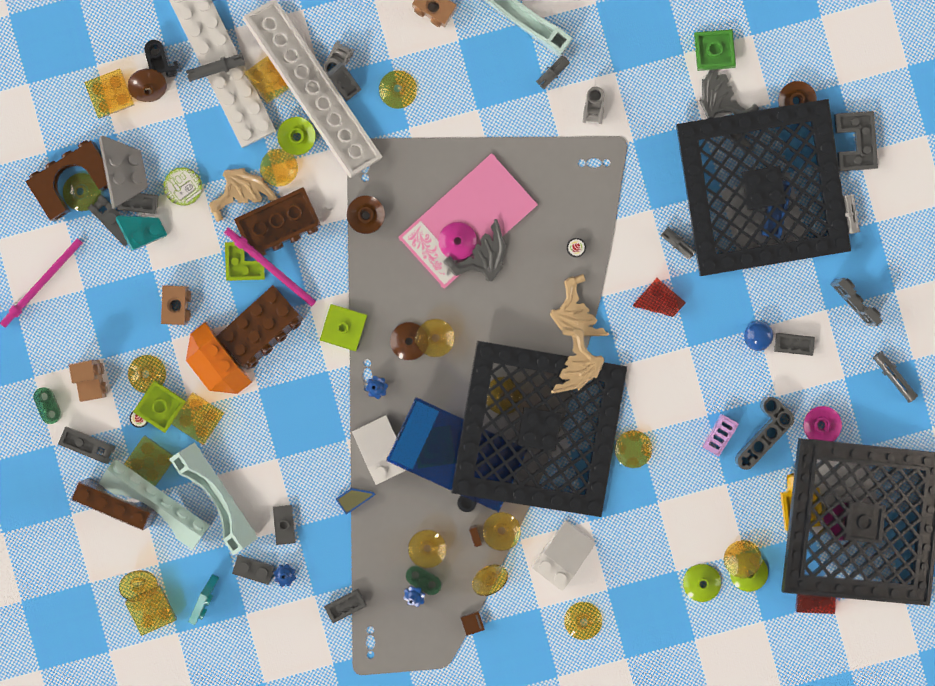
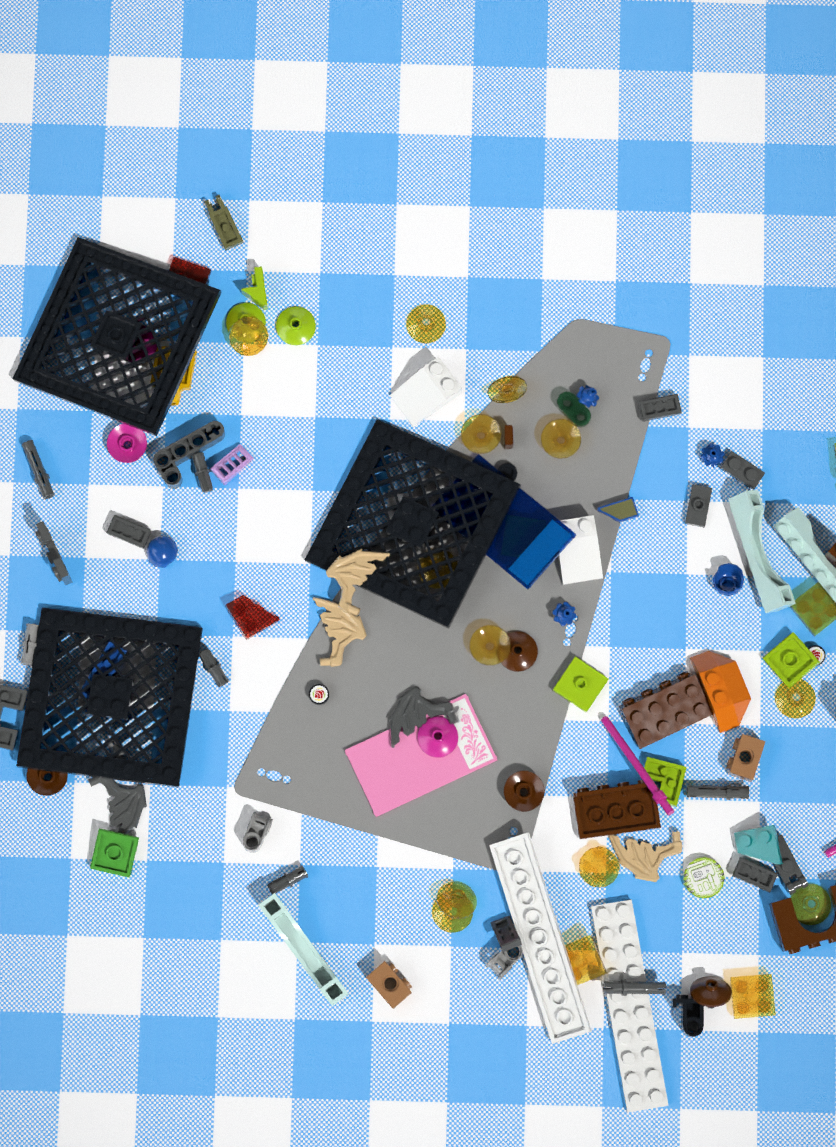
camera: 170 degrees left, 10 degrees down
(123, 170) = (760, 909): light grey wing -> none
(191, 267) = (712, 791): none -> dark grey pin
(198, 418) = (755, 636): clear yellow plate -> none
(204, 599) = (799, 454): teal wing -> none
(236, 463) = (728, 579): none -> blue hair
(291, 127) = (582, 892): lime dish -> none
(397, 91) = (453, 906): none -> clear yellow dish
(472, 623) = (537, 353): reddish brown tile -> none
(633, 449) = (323, 476): clear yellow dish -> none
(744, 419) = (202, 472): none -> dark grey axle
(745, 603) = (258, 293): none -> lime slope
(797, 658) = (224, 224): none -> olive hinge

